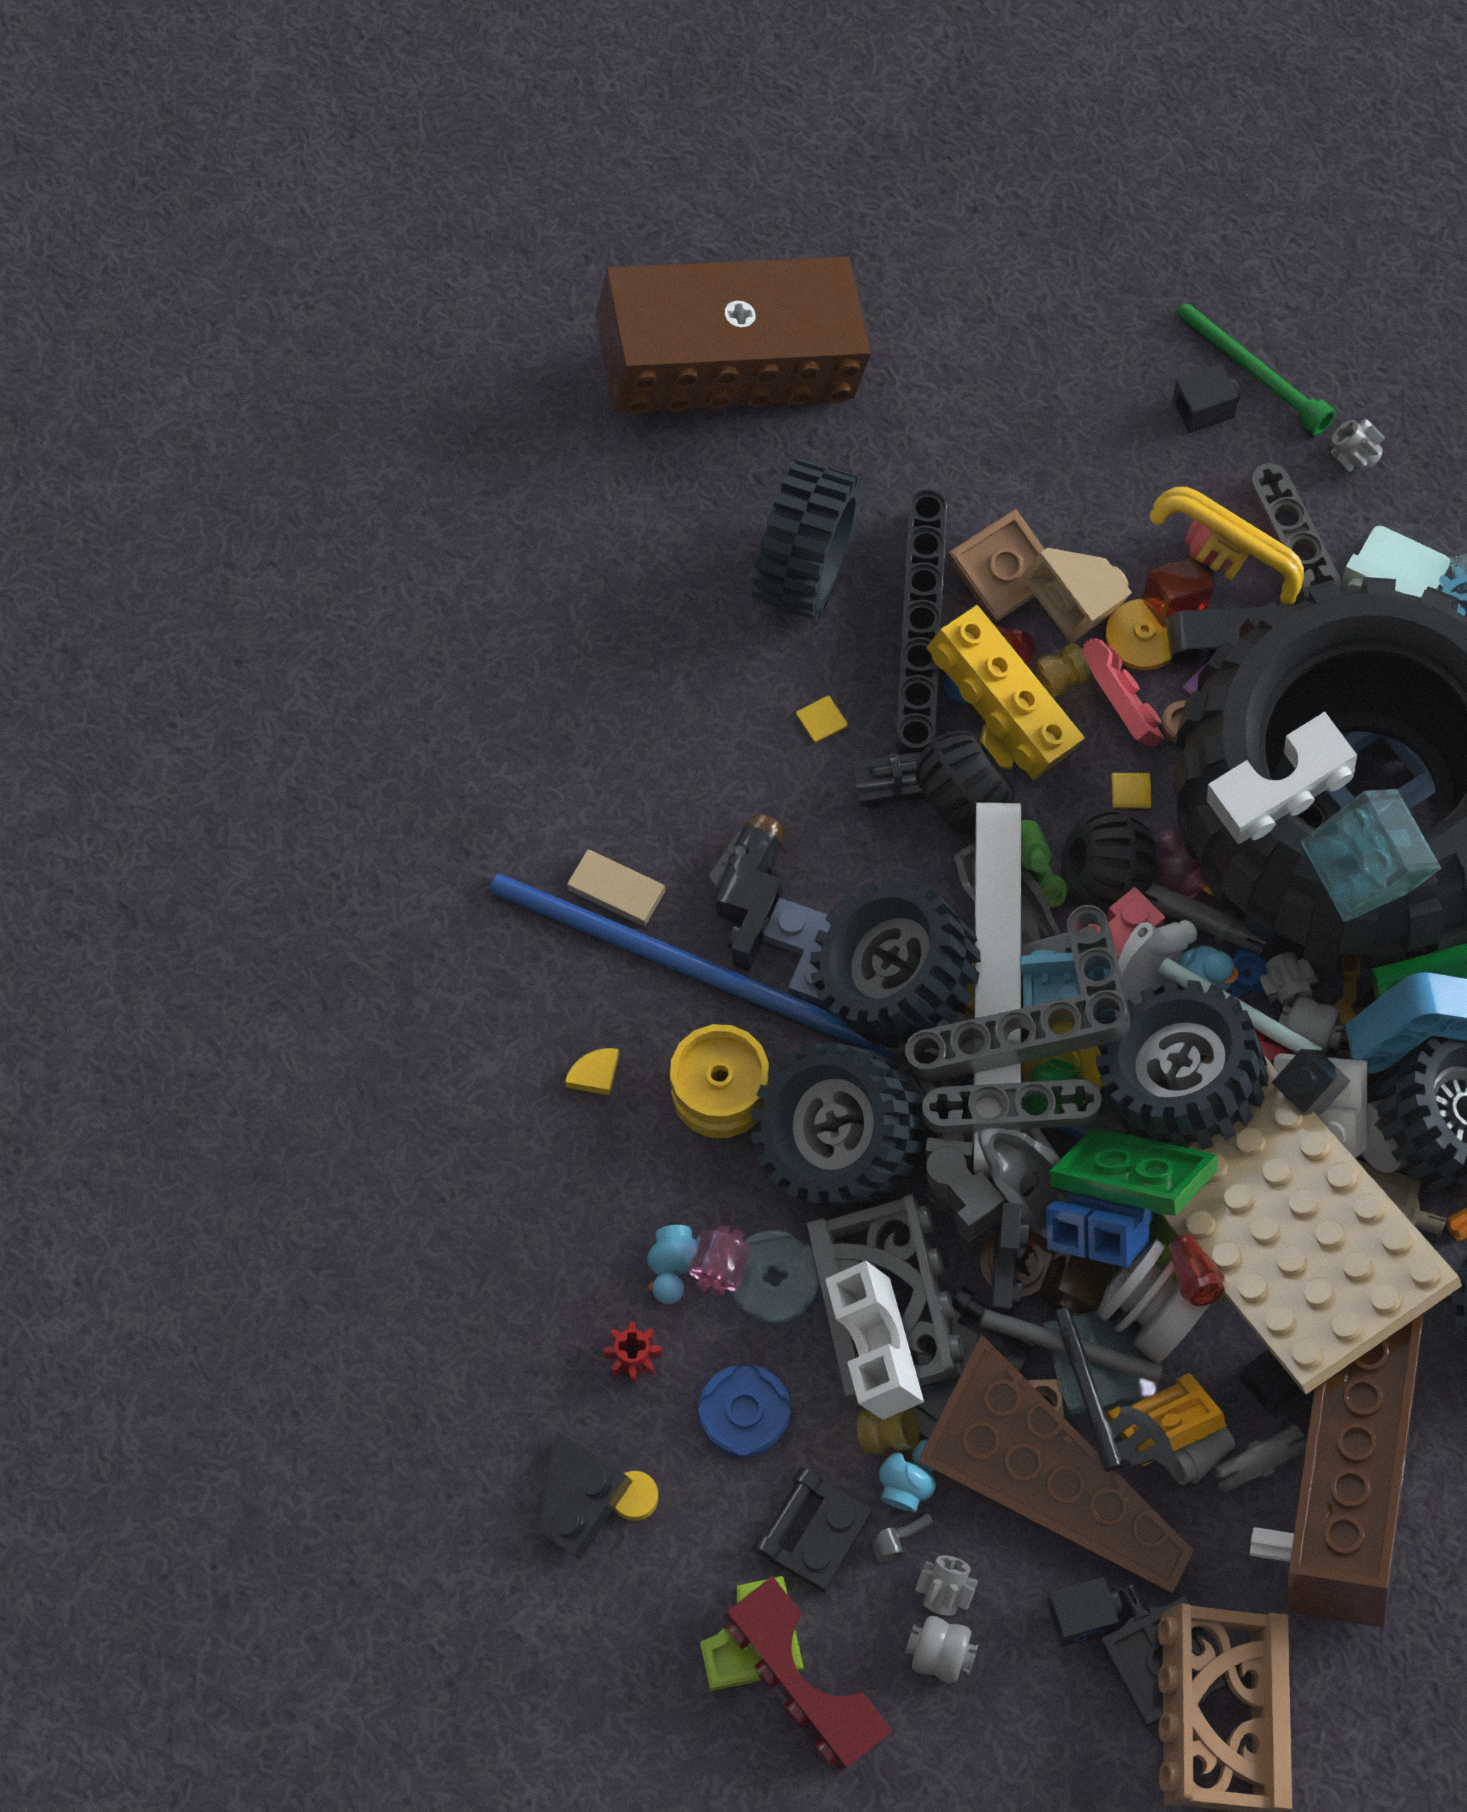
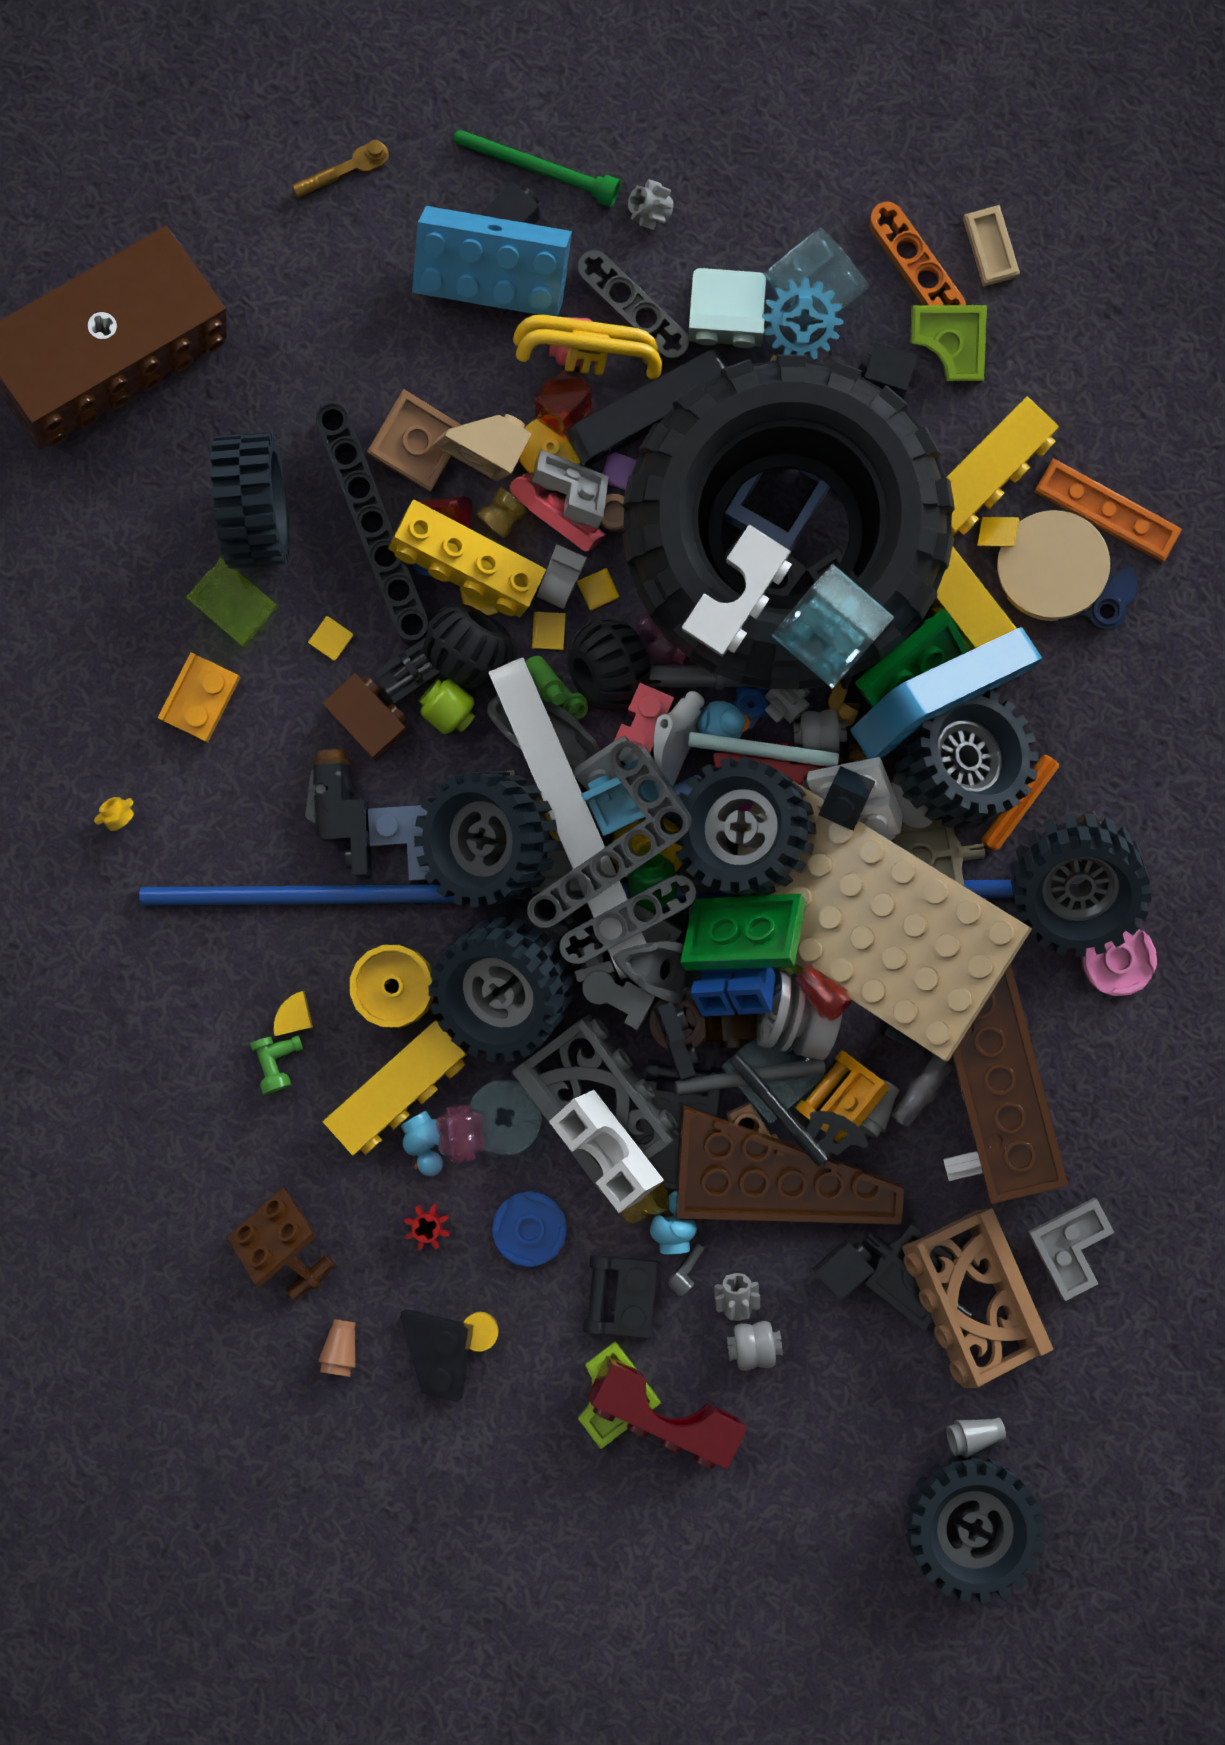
camera: 25 degrees left, 20 degrees up
(457, 1284) = (273, 1239): none -> reddish brown plate
(468, 1442) = (339, 1349): none -> nougat cone
(510, 787) = (115, 813): none -> yellow plate
(541, 1127) = (267, 1053): none -> bright green piece
(616, 887) = (237, 856): tan tile -> none
(655, 717) = (199, 697): none -> light orange plate
(671, 1191) = (394, 1088): none -> yellow brick
(736, 639) = (232, 602): none -> clear neon green plate
(822, 805) = (366, 716): none -> reddish brown piece
(914, 831) = (447, 706): none -> lime head
(1058, 808) = (548, 630): none -> yellow piece
(1076, 292) = (364, 160): none -> pearl gold piece
(1098, 755) = (561, 576): none -> light grey leg
(1158, 680) = (583, 487): none -> light grey plate
(1164, 426) = (491, 261): none -> dark azure brick
(1351, 1704) = (1061, 1243): none -> light grey plate

